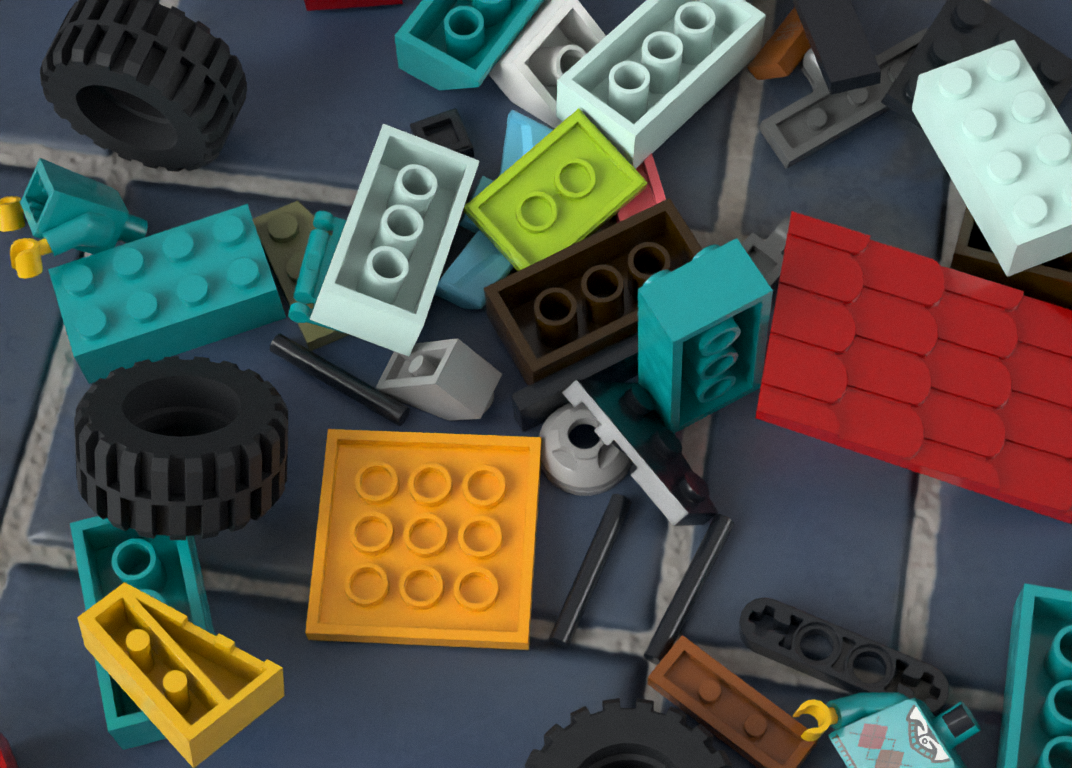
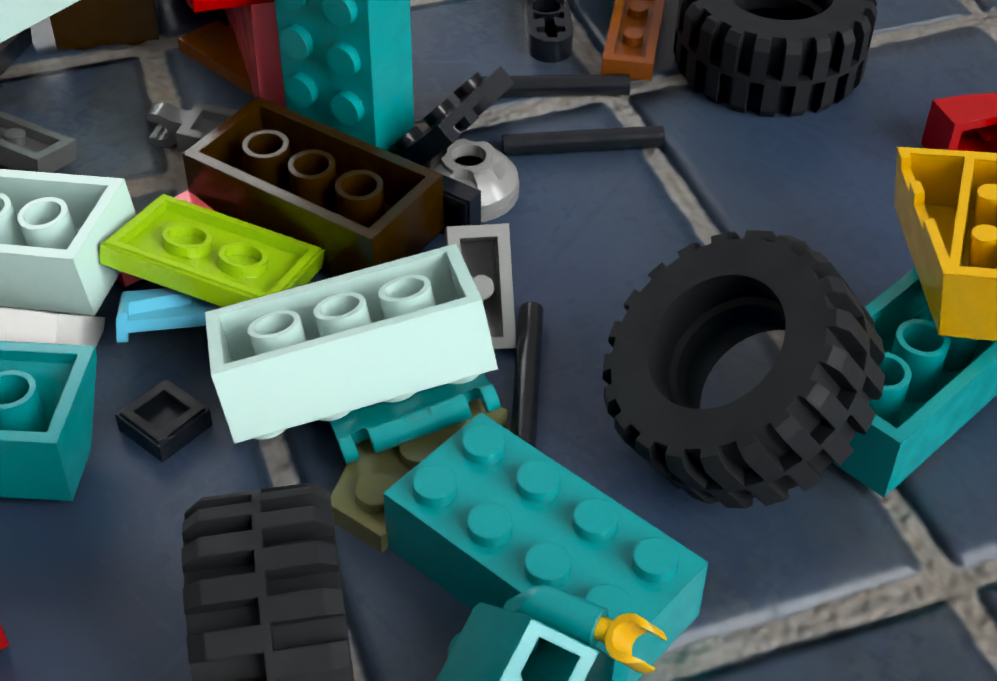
camera: 125 degrees left, 20 degrees down
(426, 539) = (615, 219): light orange plate -> none

